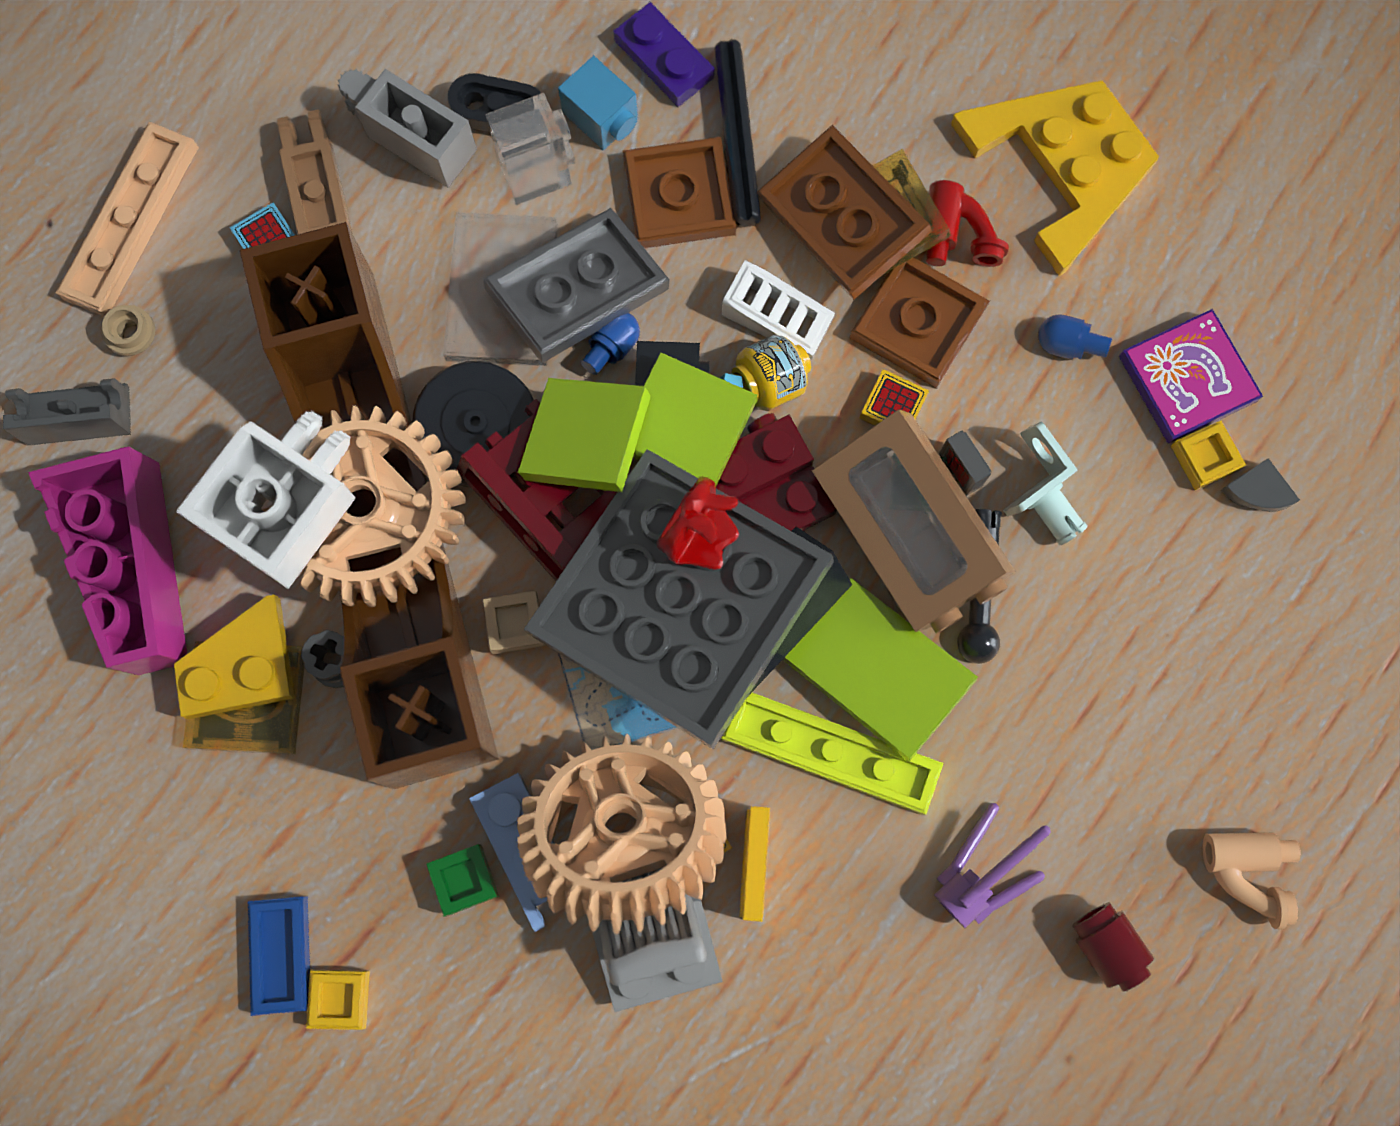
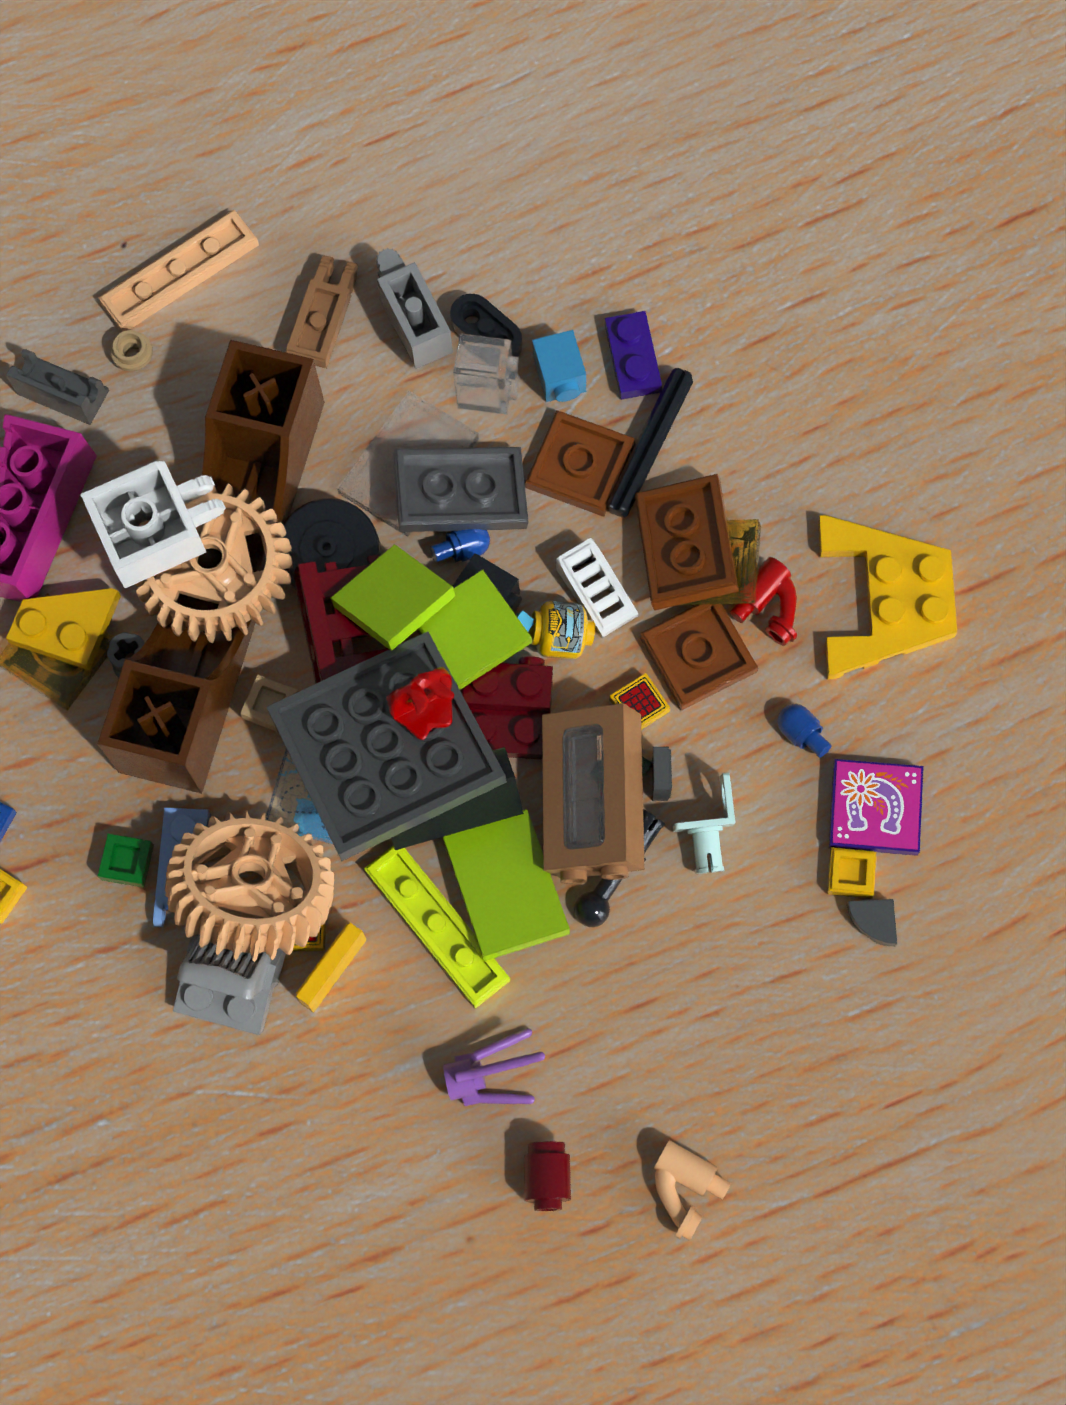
camera: 35 degrees right, 5 degrees down
(262, 227) = (266, 331): tile -> none

